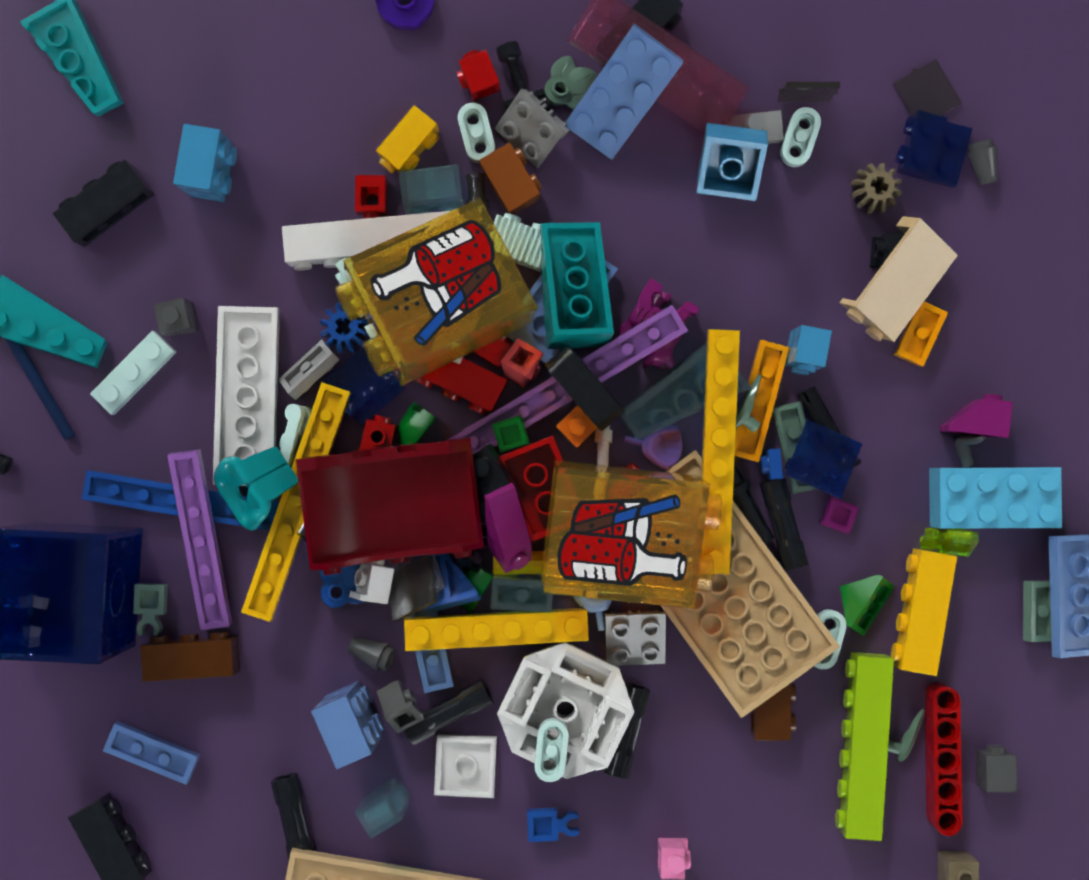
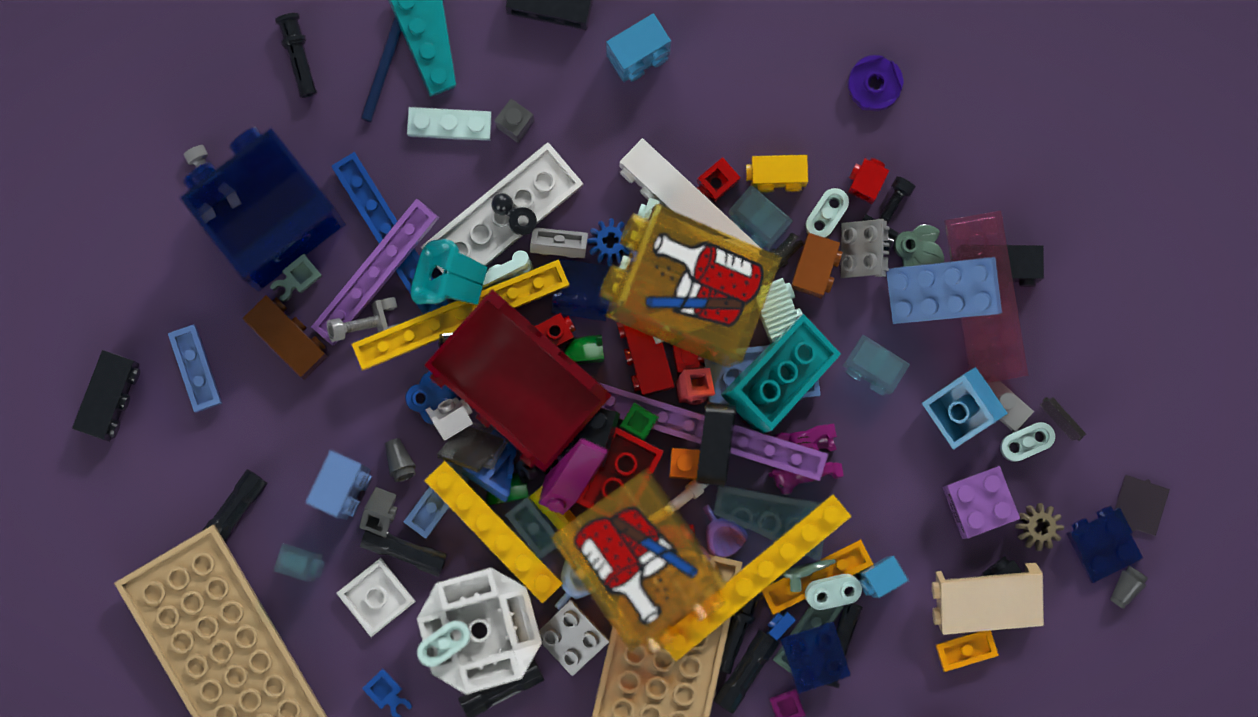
camera: 40 degrees right, 5 degrees down
(221, 611) = (337, 329): none -> light grey bar
(237, 388) = (503, 205): none -> black plate
(633, 203) = (875, 365): none -> clear light blue brick
(782, 396) = (834, 591): none -> light aqua plate
(816, 217) = (981, 502): none -> medium lavender brick

